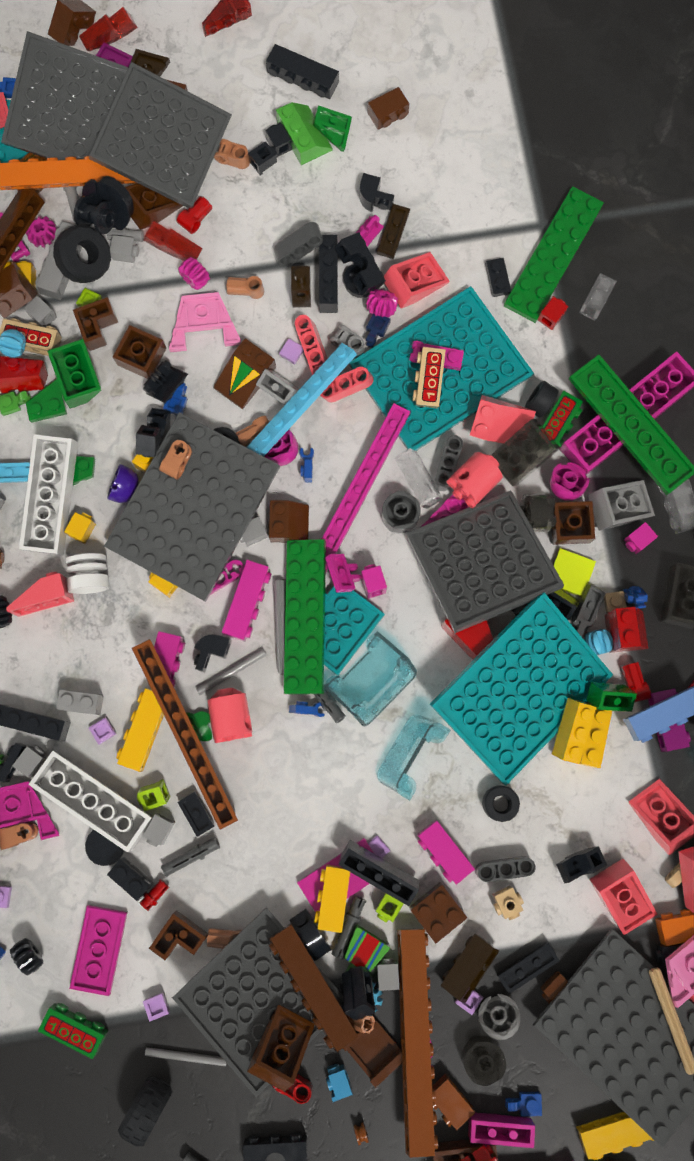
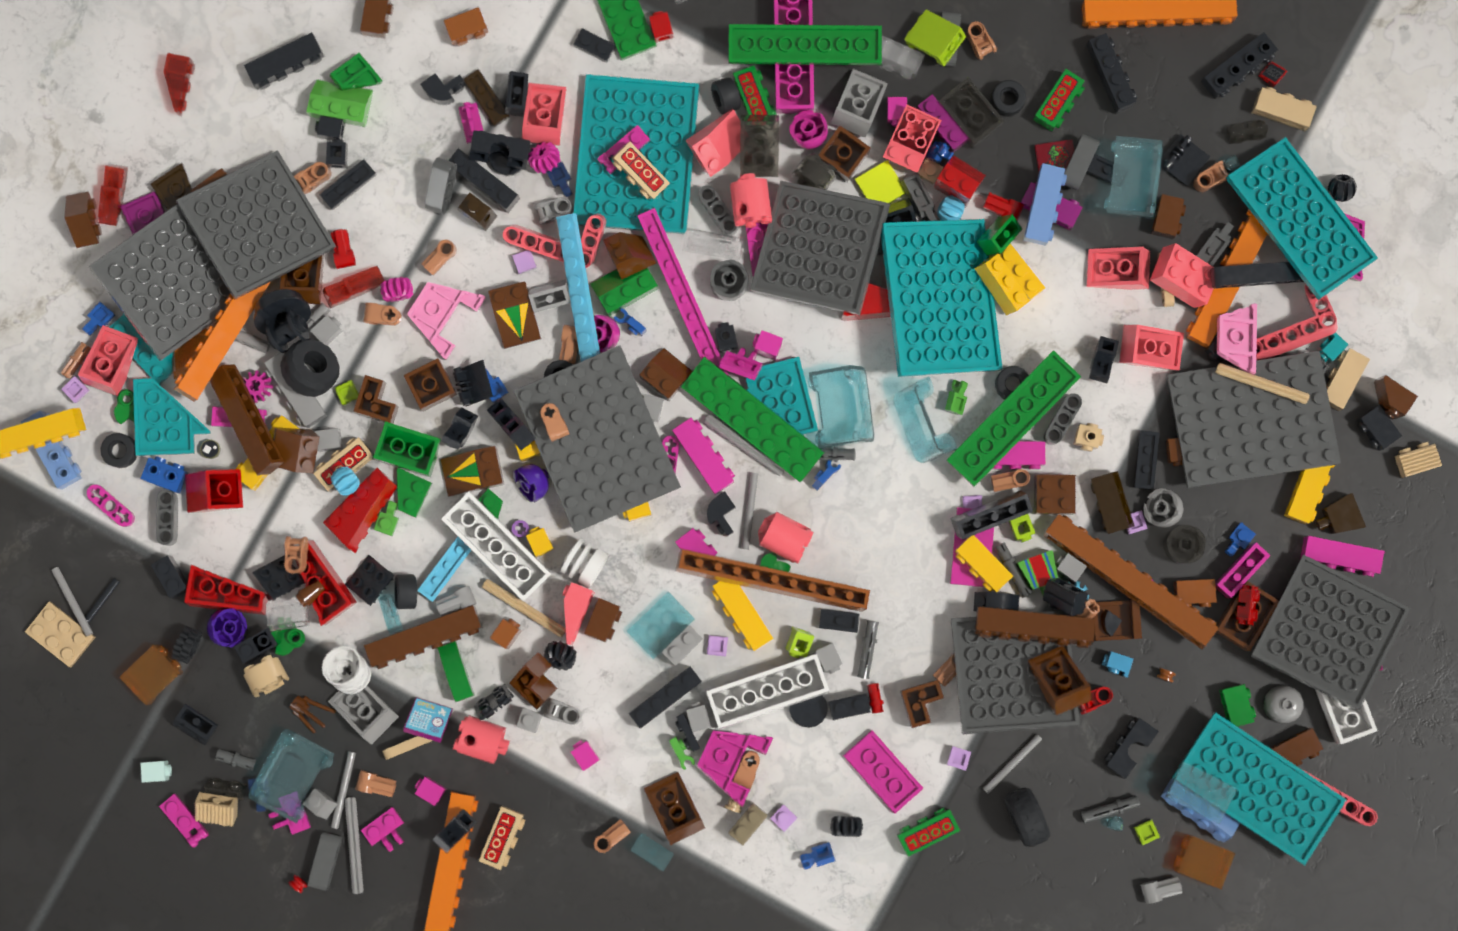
camera: 50 degrees left, 5 degrees up
(19, 555) = (524, 608): none -> tan axle
(53, 624) = (602, 620): none -> reddish brown brick
(85, 673) = (661, 625): none -> clear light blue plate
(86, 506) = (525, 525): none -> medium lavender bush
(99, 436) = (472, 471): none -> reddish brown slope
(122, 401) = (460, 429): none -> black brick
(166, 278) = (378, 314): none -> nougat piece
(247, 183) = (348, 184): none -> black plate
(331, 438) = (620, 293): none -> green slope
(354, 552) = (726, 344): none -> black brick
(359, 420) = (629, 253): none -> reddish brown slope
(368, 1047) = (1110, 622): none -> black tile
(413, 245) = (516, 93): none -> black brick
(419, 863) = (1008, 480): none -> nougat piece
(434, 175) = (466, 27): none -> dark orange brick
(450, 767) = (956, 400): none -> bright green plate
(473, 828) = (1013, 418): none -> green plate
(628, 566) = (912, 138): none -> coral slope
(660, 581) = (948, 130): none -> magenta brick

